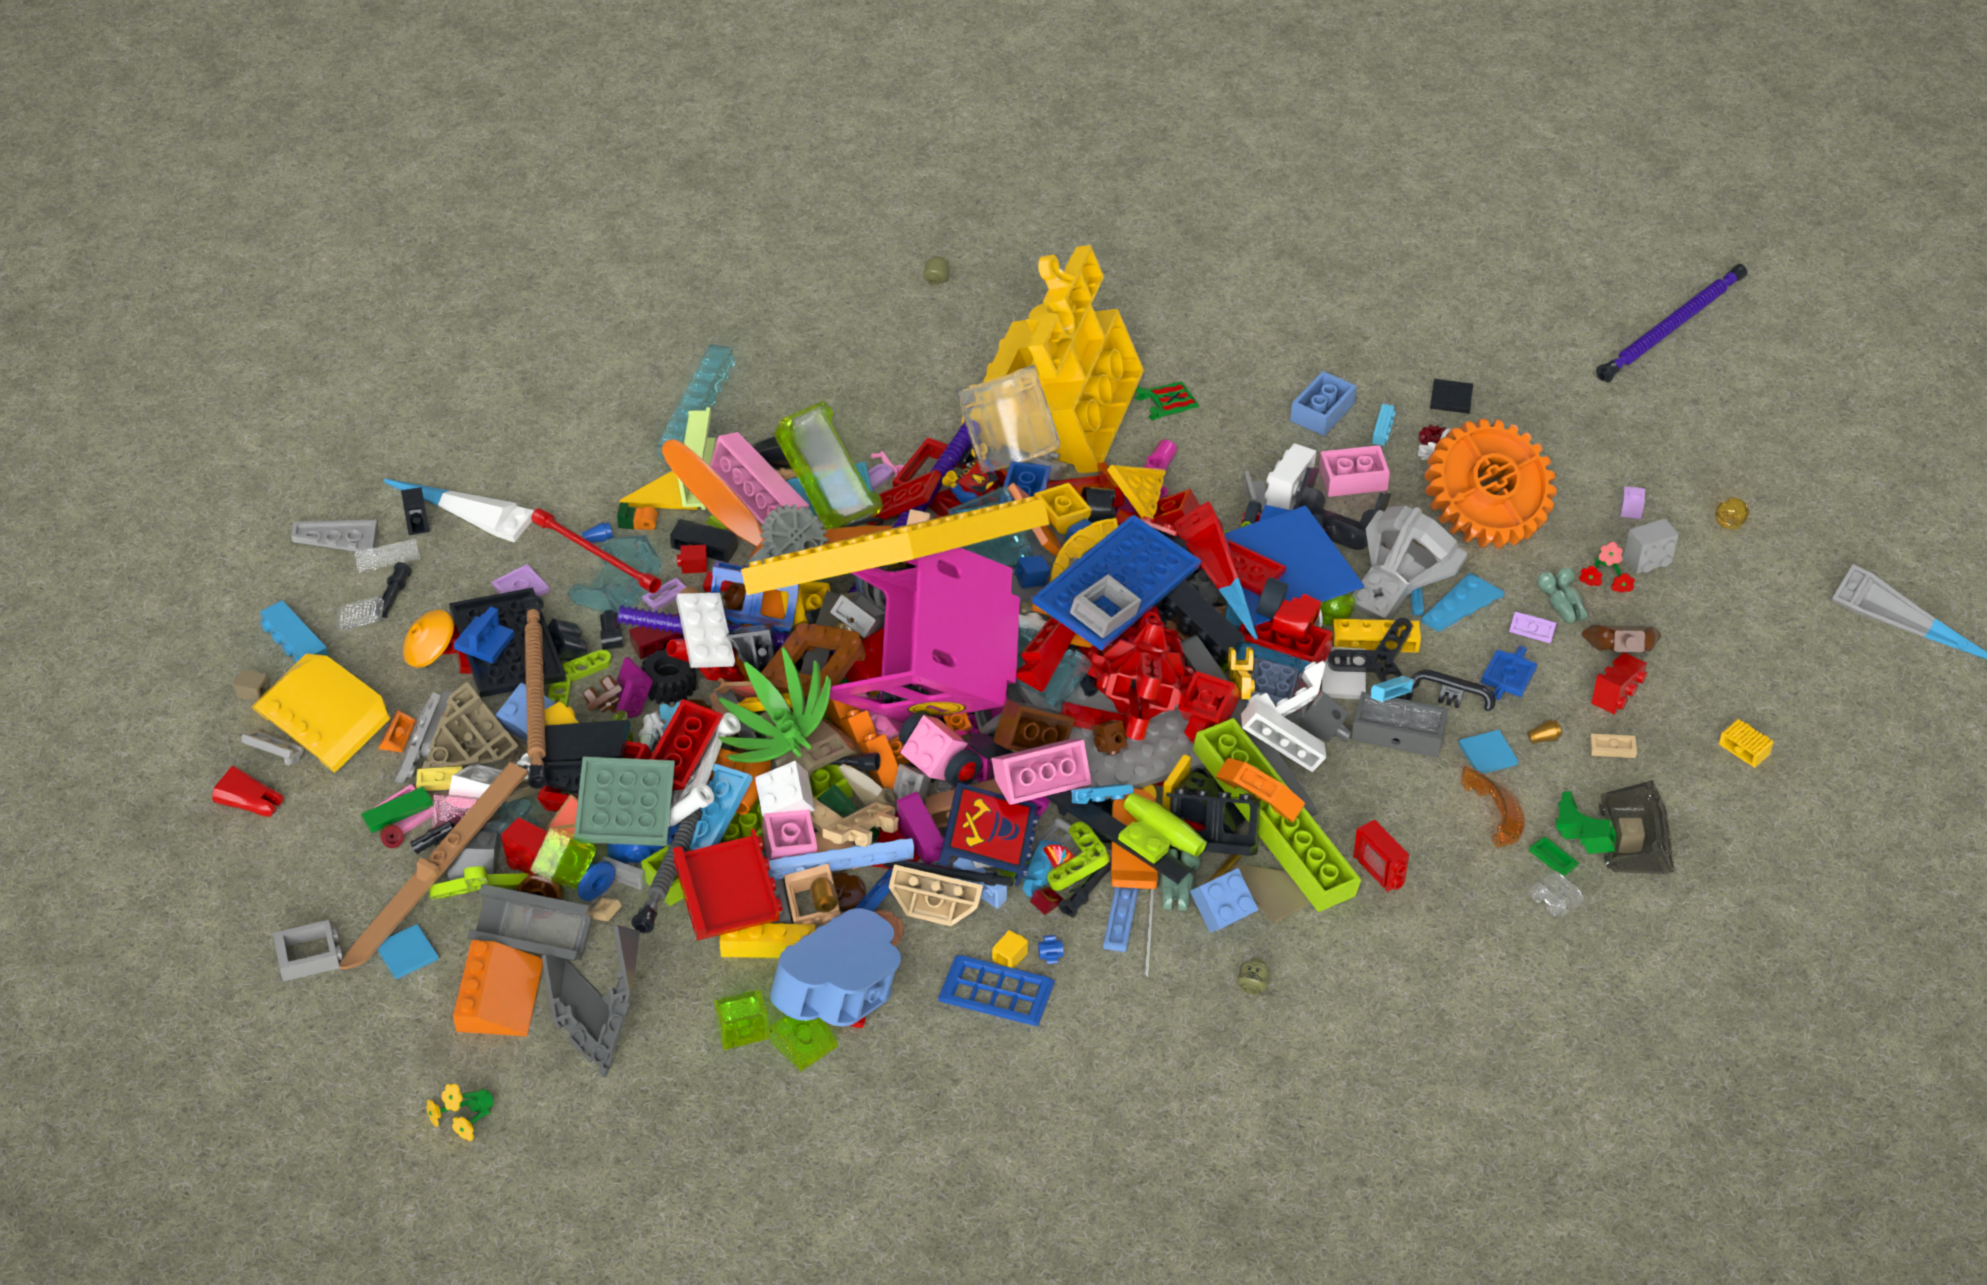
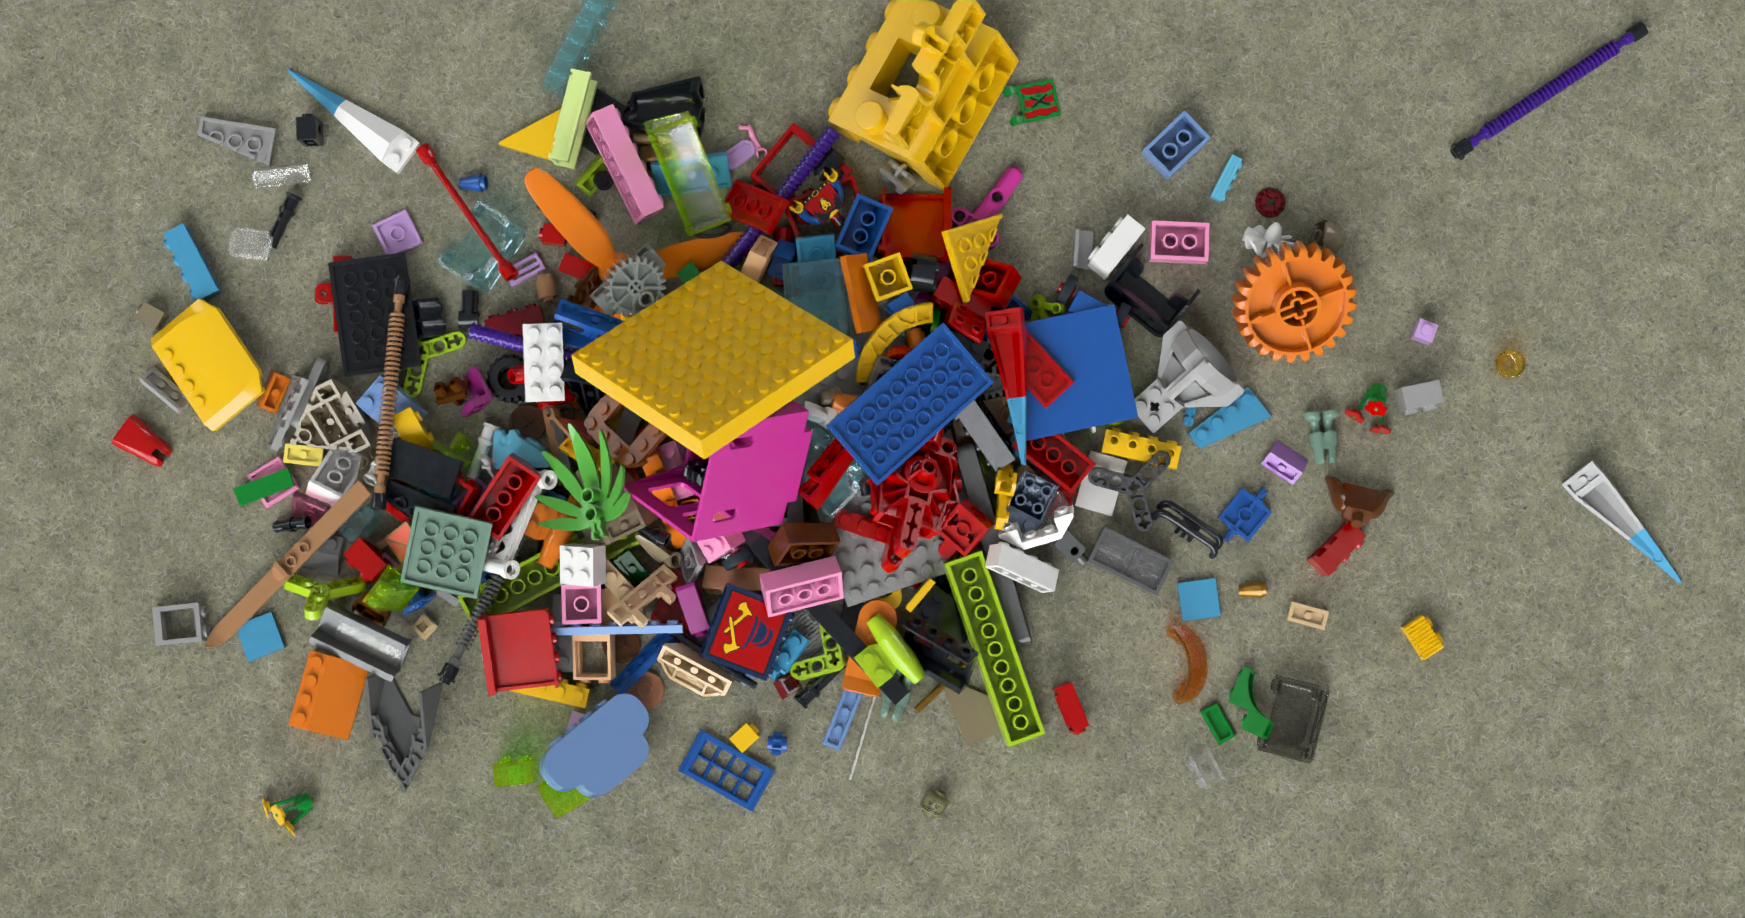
camera: 10 degrees right, 40 degrees up
(395, 839) = (257, 513): dark red tile -> none
(427, 638) = (307, 295): light orange dish -> none
(484, 637) = (353, 316): blue bracket -> none
(636, 518) = (510, 169): leg -> none
(728, 790) = (532, 558): dark azure wing -> none
(823, 895) = (599, 669): pearl gold brick -> none
(1008, 420) = (855, 165): clear windscreen -> none
(1057, 854) = (802, 653): tile -> none
(1096, 618) = (872, 459): light grey window -> none
(1098, 793) = (849, 611): dark azure hinge -> none
(1110, 736) = (868, 555): reddish brown brick -> none
(1224, 900) = (928, 728): medium blue brick -> none
(1261, 785) = (978, 642): orange slope -> none
(1271, 597) = (1049, 425): black wheel -> none
(1297, 617) = (1066, 448): red piece -> none
(1392, 688) = (1131, 531): medium azure piece -> none
(1451, 396) = (1302, 150): black tile -> none
(1629, 835) = (1285, 722): dark tan brick -> none

